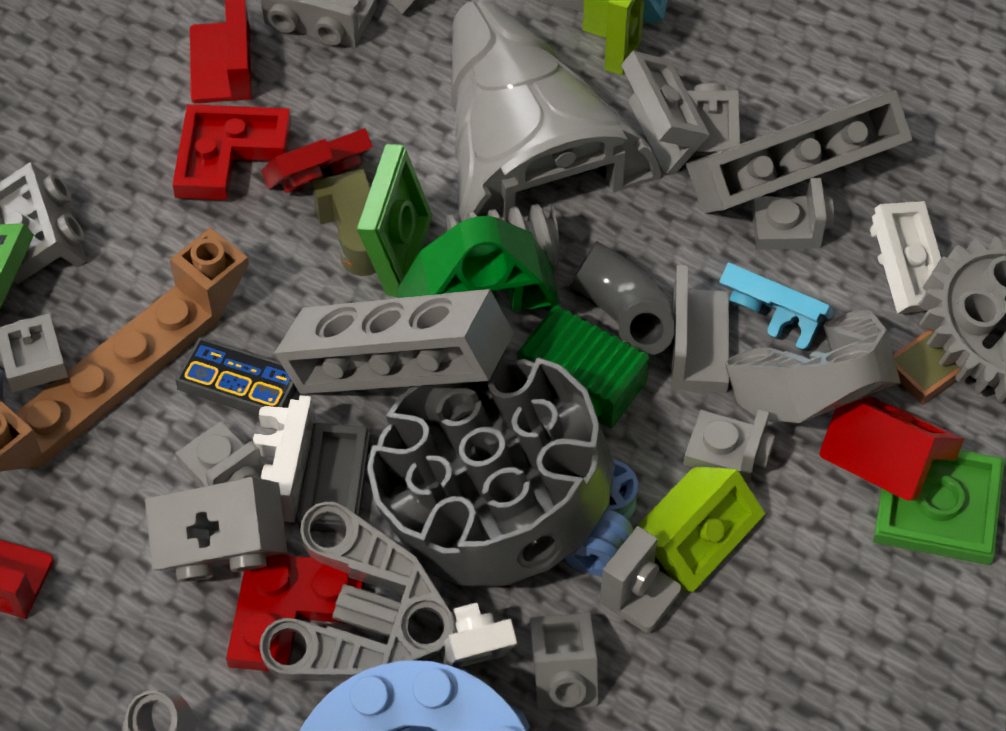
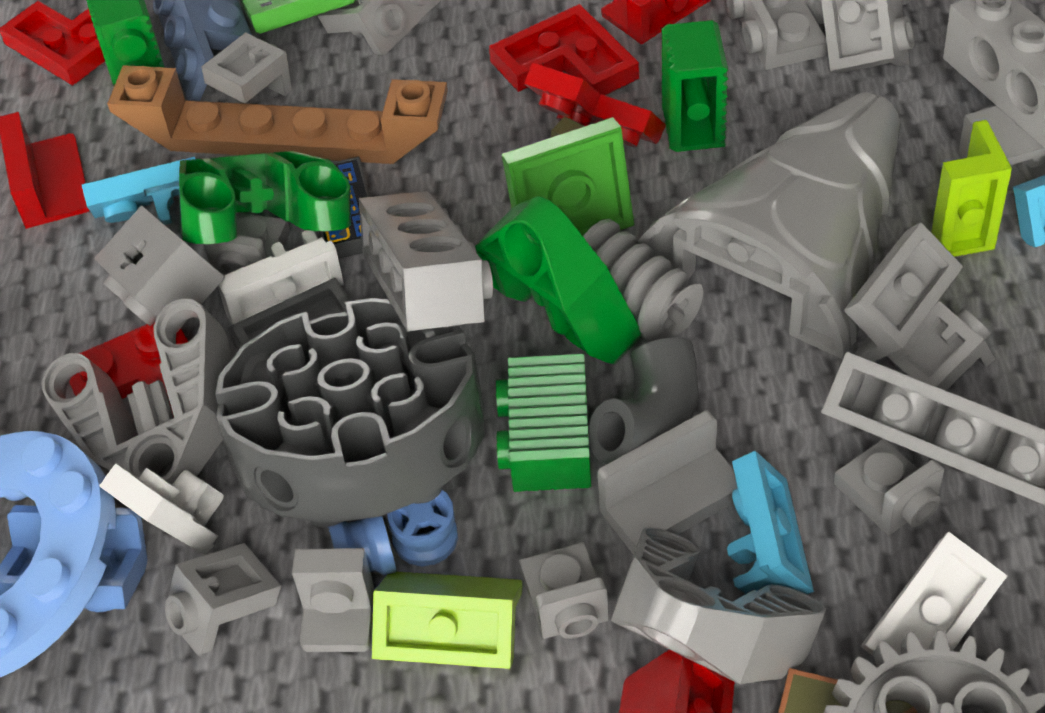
camera: 60 degrees right, 5 degrees down
(98, 489) = (121, 195): none -> medium azure plate
(191, 424) = (286, 183): none -> green connector
(364, 87) = (694, 85): none -> green brick

